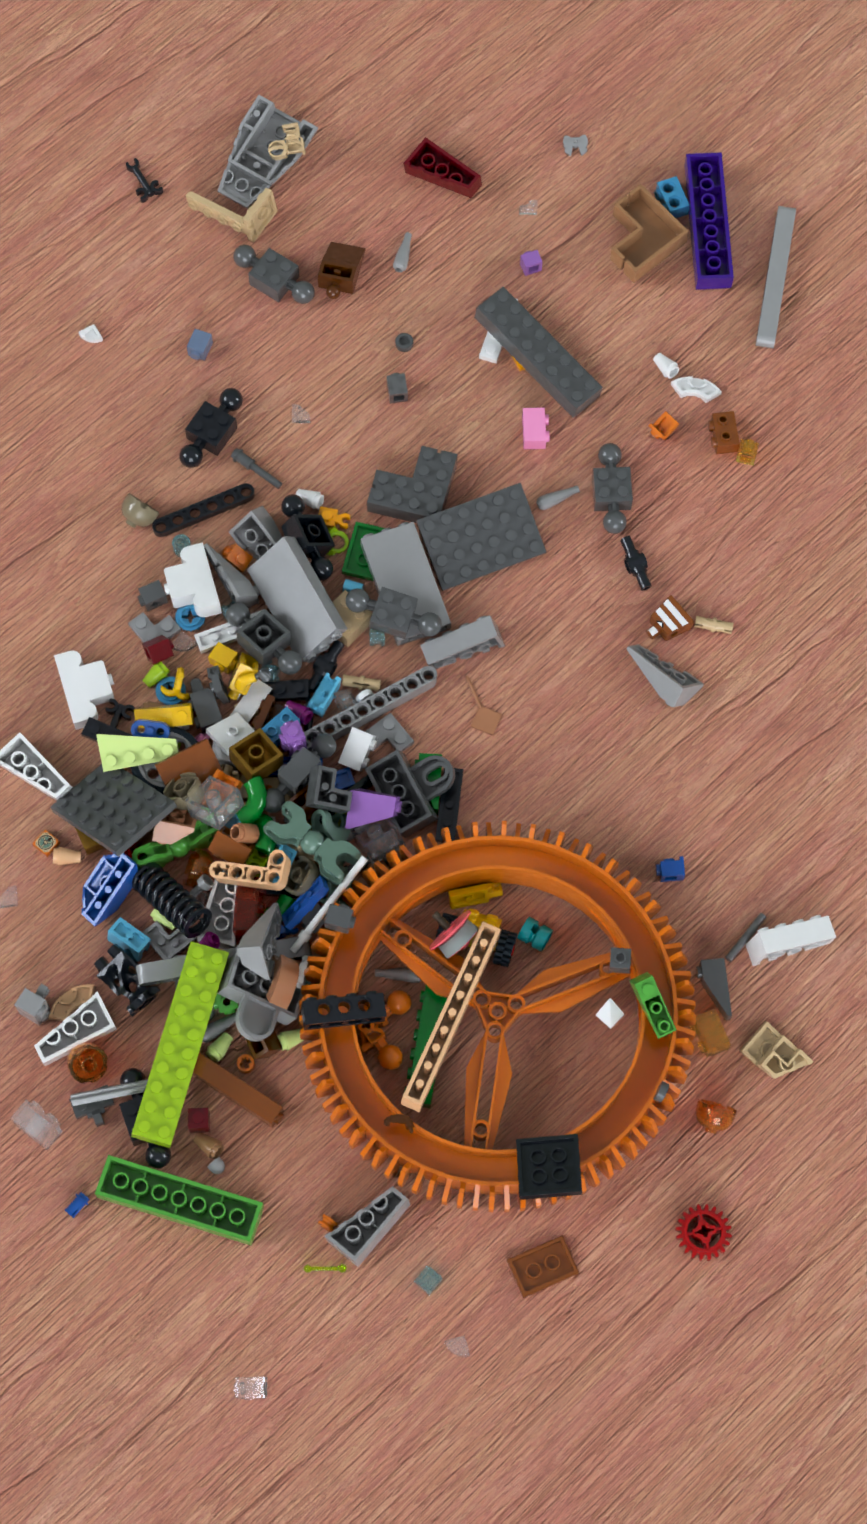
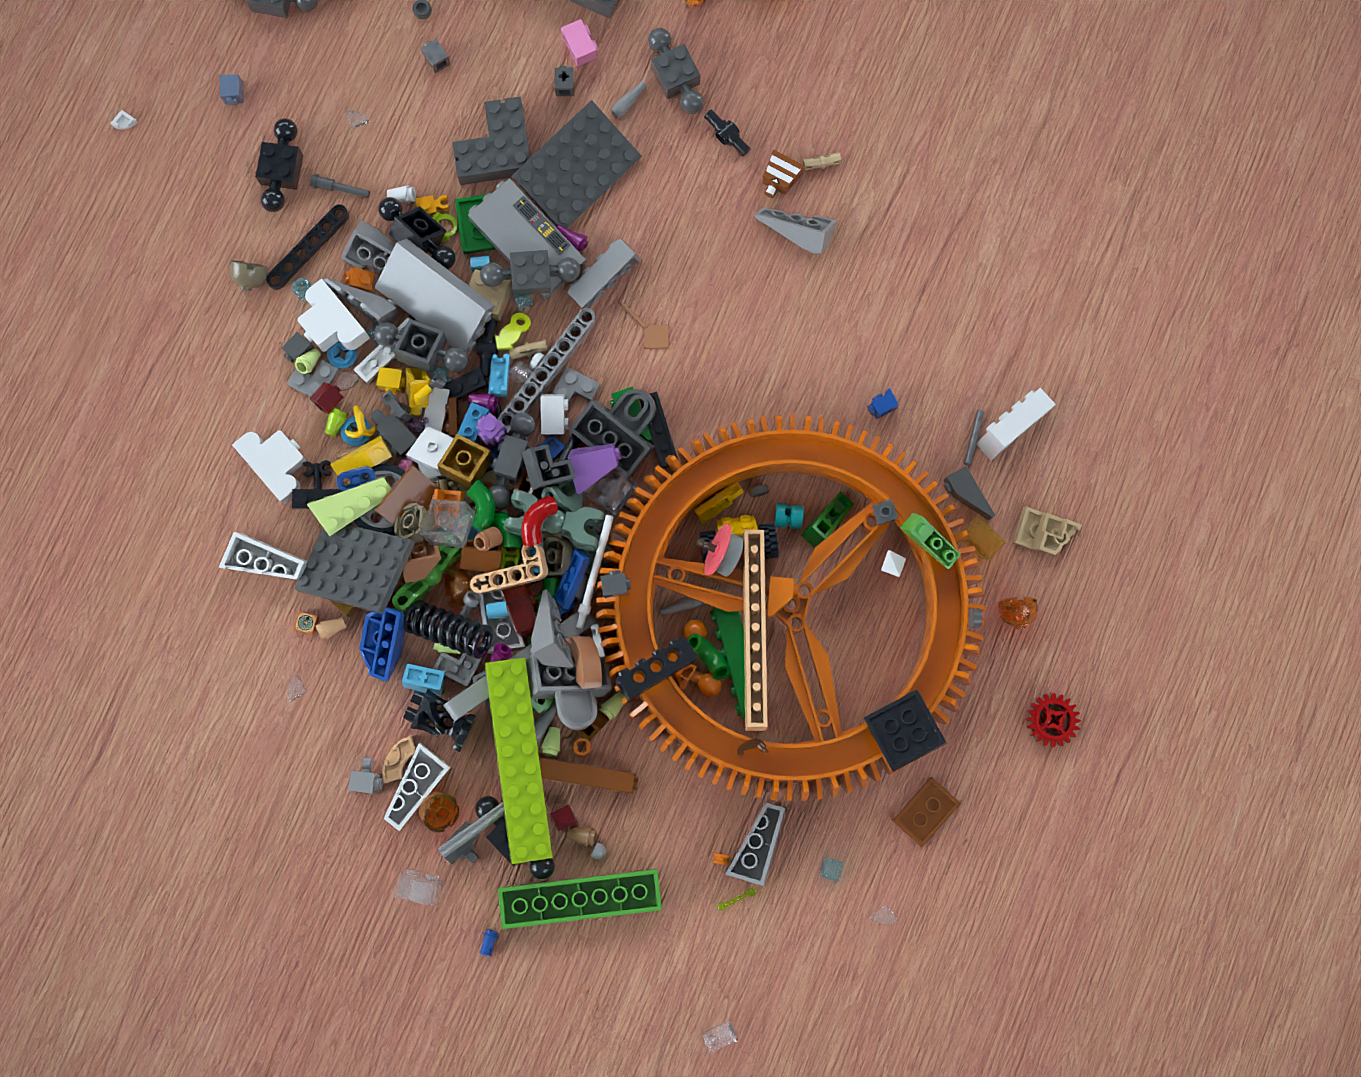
camera: 25 degrees left, 10 degrees up
(155, 610) = (307, 361): none -> yellowish green cone
(223, 901) = (497, 610): none -> medium azure brick
(228, 708) = (417, 425): none -> clear purple piece
(294, 829) = (534, 518): none -> red cylinder
(353, 660) = (512, 331): none -> neon yellow brick
(401, 1028) = (709, 656): none -> green cylinder
(424, 575) = (541, 224): none -> dark grey sticker
(451, 603) = (577, 240): none -> magenta cone
(490, 996) = (780, 594): none -> orange slope
(504, 463) = (564, 88): none -> dark grey brick
(517, 899) = (758, 491): none -> dark grey tile
(571, 952) = (827, 520): none -> green slope

